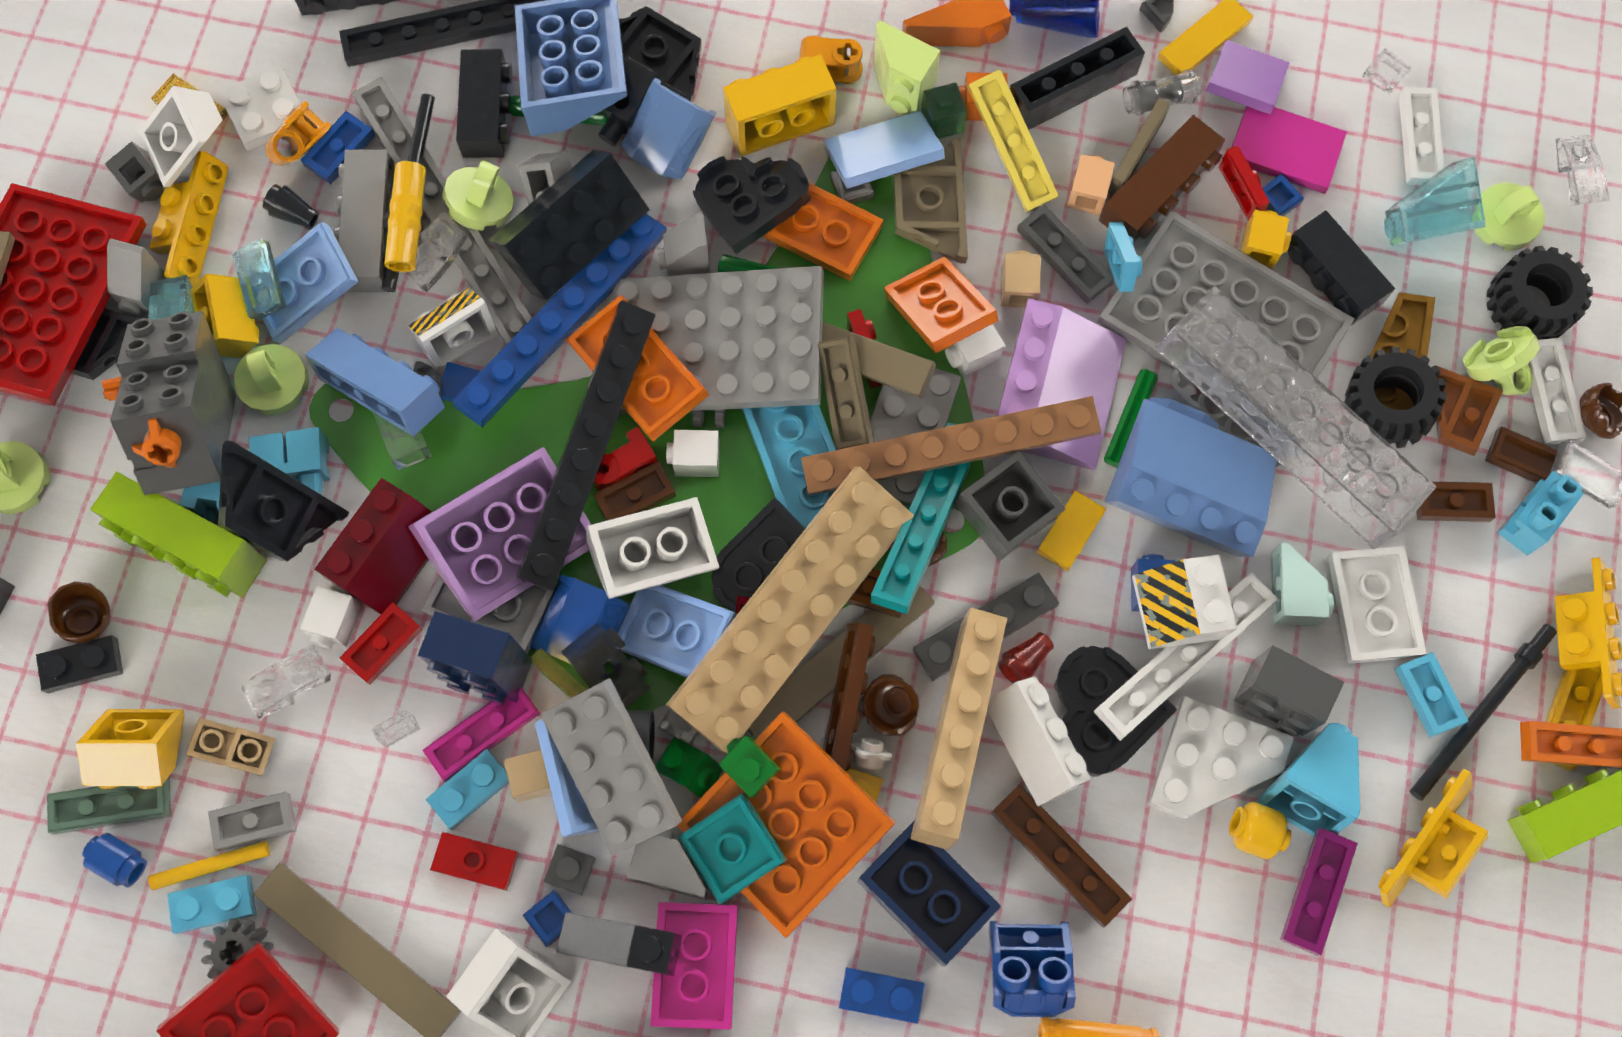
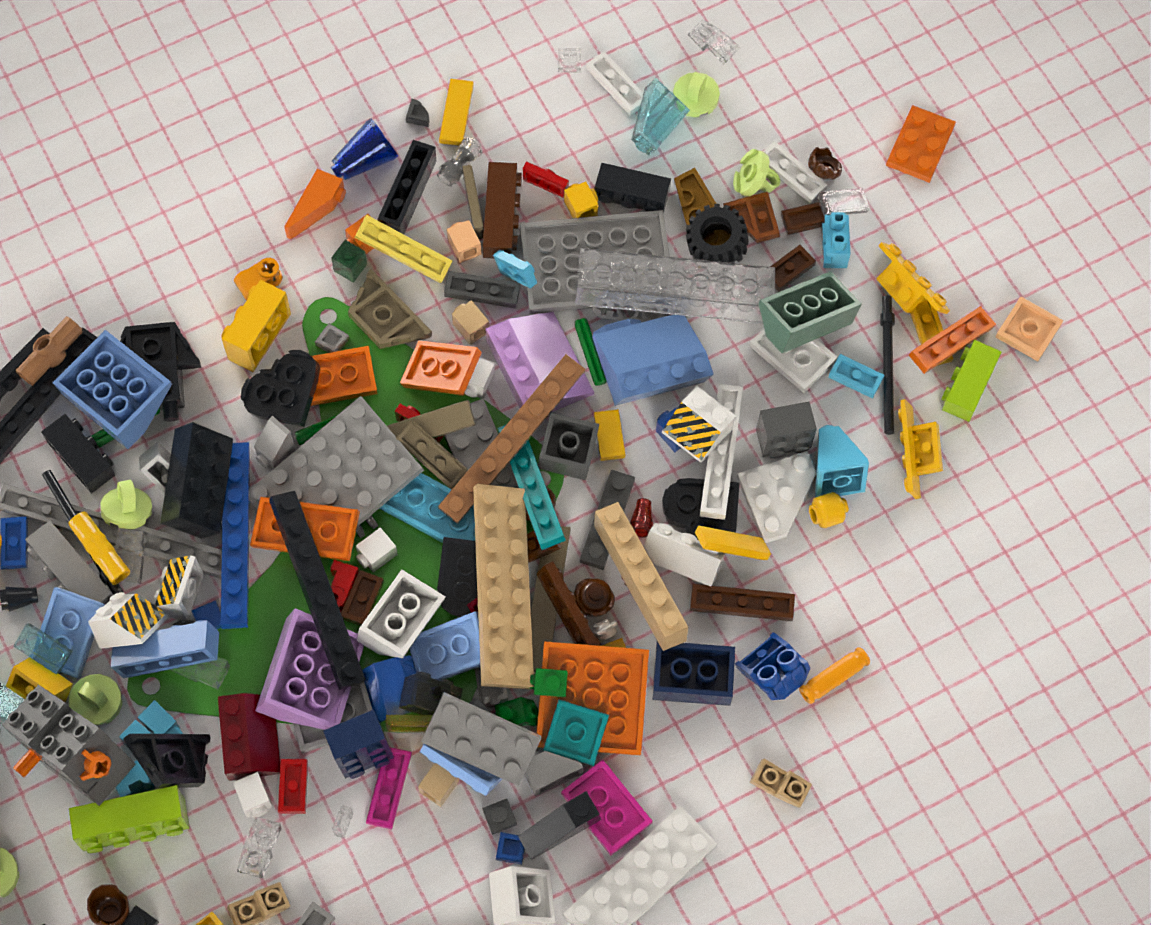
camera: 40 degrees left, 5 degrees down
(361, 316) = (126, 621): none -> slope
(468, 789) = (409, 821): medium azure plate -> none
(474, 861) = (445, 853): red plate -> none
(667, 131) = (205, 388): medium blue slope -> none
(881, 995) = (712, 744): blue plate -> none
(884, 149) = (334, 306): light blue tile -> none
(903, 67) = (307, 254): yellowish green slope -> none
(1106, 776) = (732, 543): none -> yellow tile
(1248, 77) = (498, 118): medium lavender tile -> none
(1282, 195) = (570, 170): blue tile -> none
(1290, 146) = (551, 140): dark pink tile -> none
(1299, 589) = (749, 373): light aqua slope -> none
(1318, 891) = (880, 516): magenta plate -> none
(1434, 571) = (807, 311): none -> sand green slope
(1552, 274) = (745, 110): black tyre -> none

